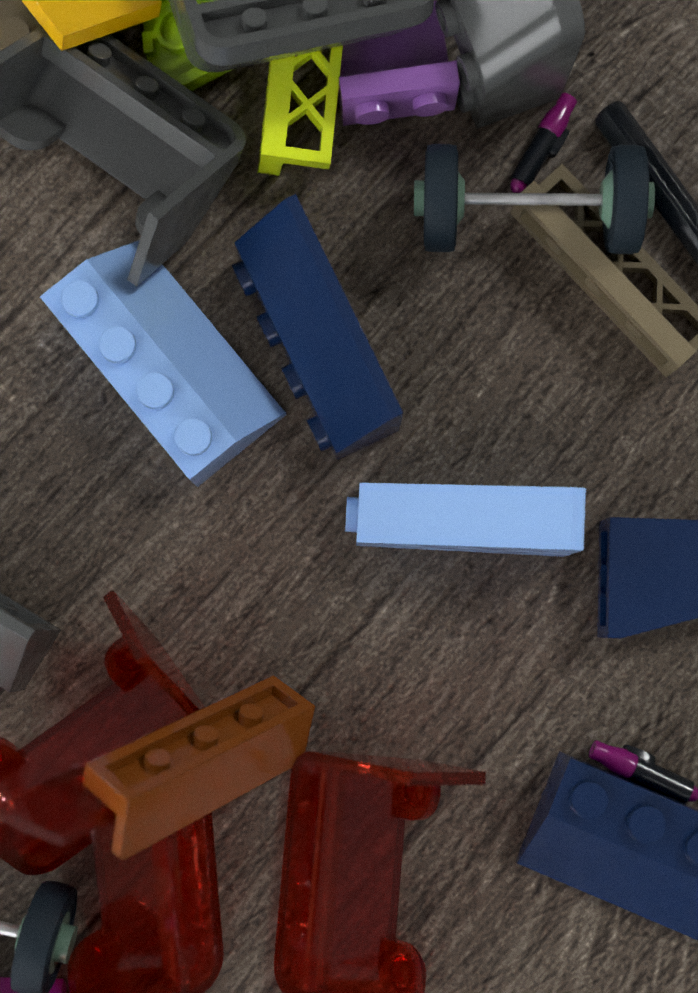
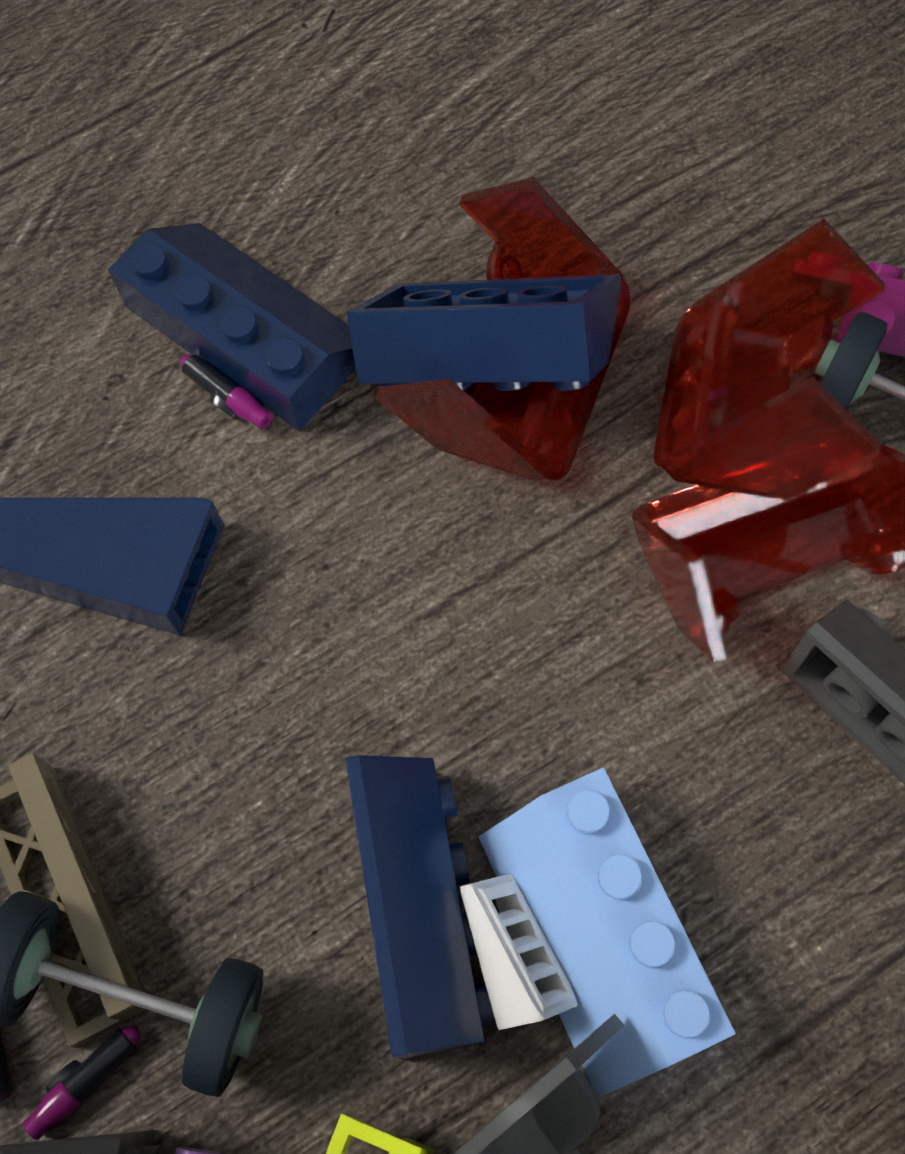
camera: 160 degrees left, 15 degrees down
(200, 763) = (656, 473): dark orange panel -> none
(217, 304) = (514, 955): none -> white slope
(401, 886) = (487, 332): none -> dark blue slope
(469, 518) = (310, 654): light blue slope -> none

